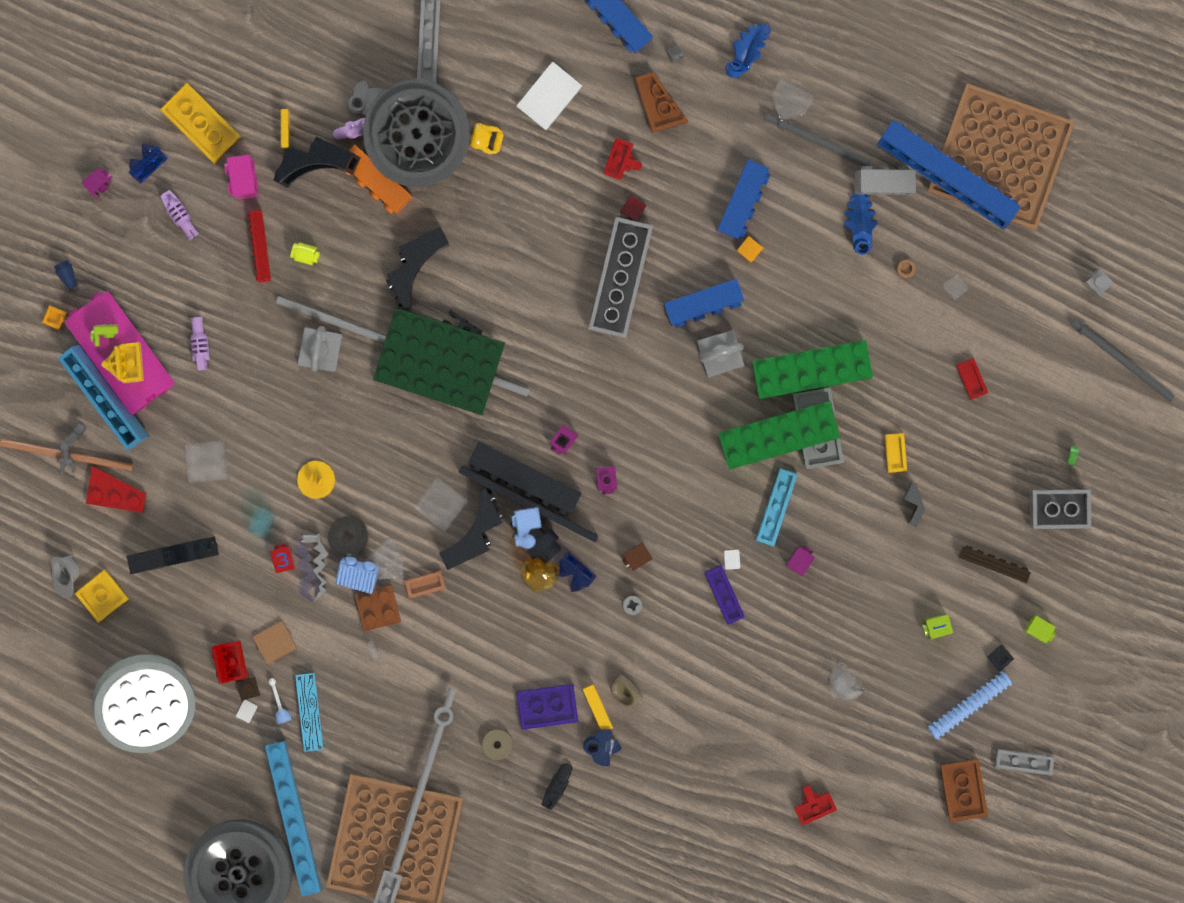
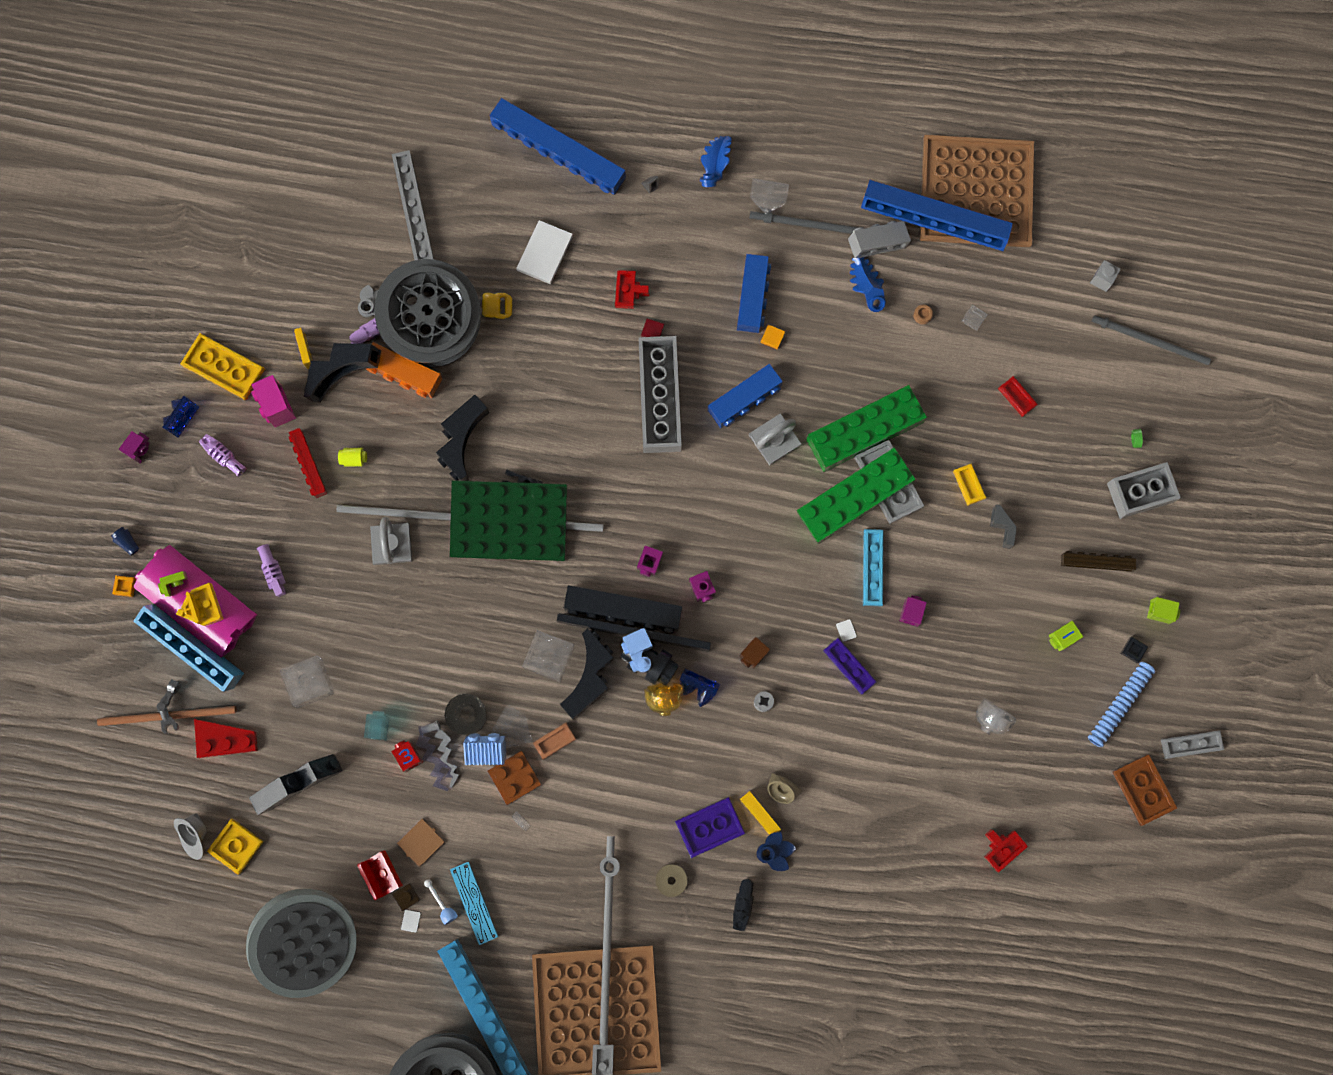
camera: 15 degrees left, 10 degrees down
(316, 479) = (420, 669): yellow piece -> none
(657, 104) = (648, 233): dark orange wing -> none

